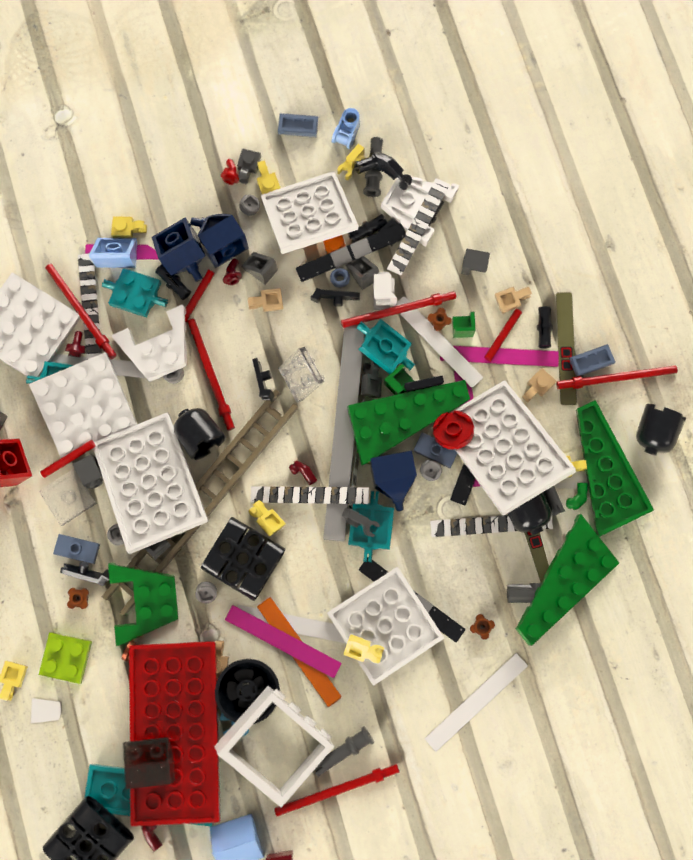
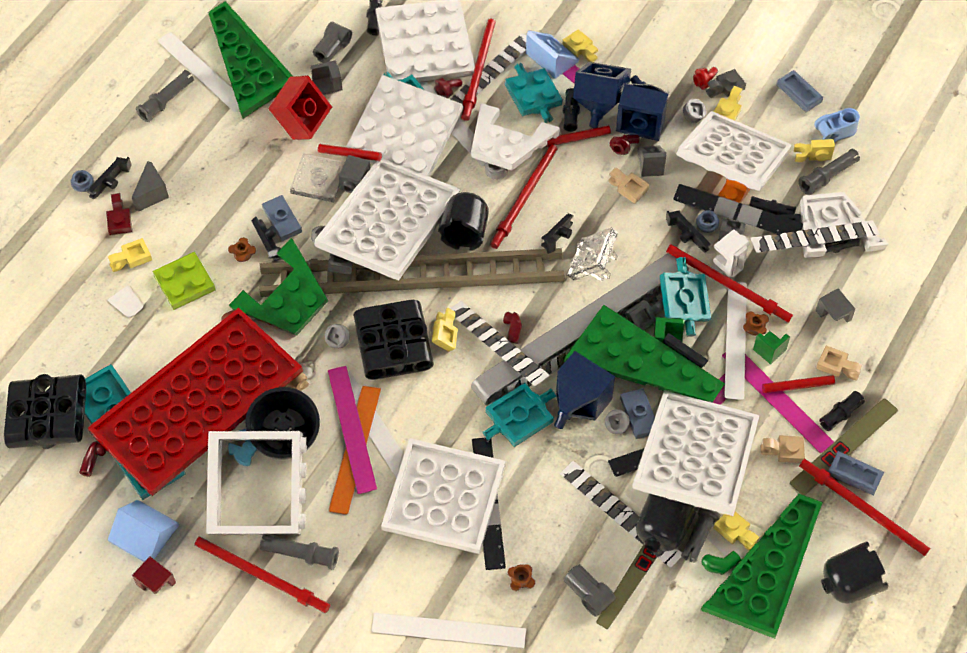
camera: 45 degrees right, 20 degrees down
(148, 763) = (154, 391): clear smoke slope -> none
(355, 519) = (512, 389): dark grey plate -> none
(361, 649) = (402, 483): light yellow plate -> none
(384, 163) = (839, 170): black arm -> none
(453, 430) = (669, 404): red tile -> none
(571, 576) = (647, 609): green wing -> none

